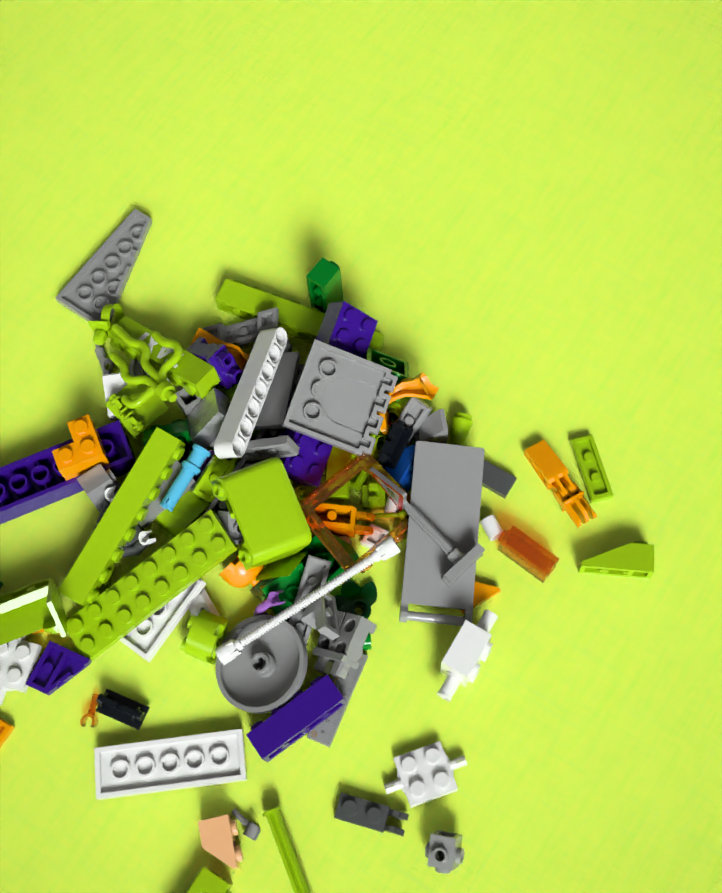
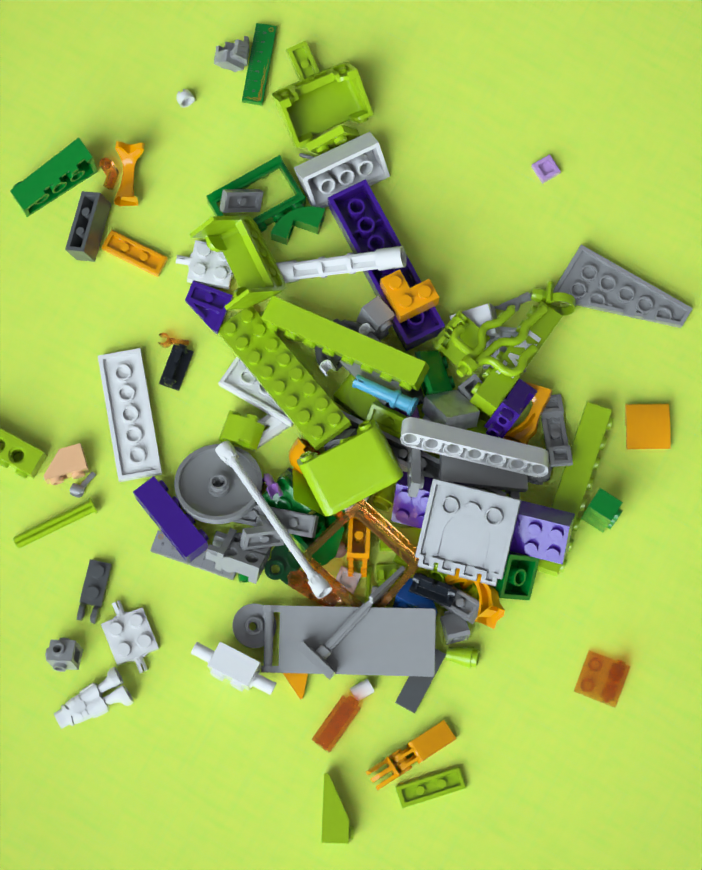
camera: 80 degrees right, 10 degrees up
(36, 471) = (351, 263): none -> white piece
(244, 254) = (647, 426): none -> light orange slope
(383, 571) = (299, 582): none -> clear orange piece
(432, 633) = (241, 621): none -> light grey dish
(486, 308) = (602, 678): none -> clear orange hinge
(500, 821) = (90, 702): none -> white piece

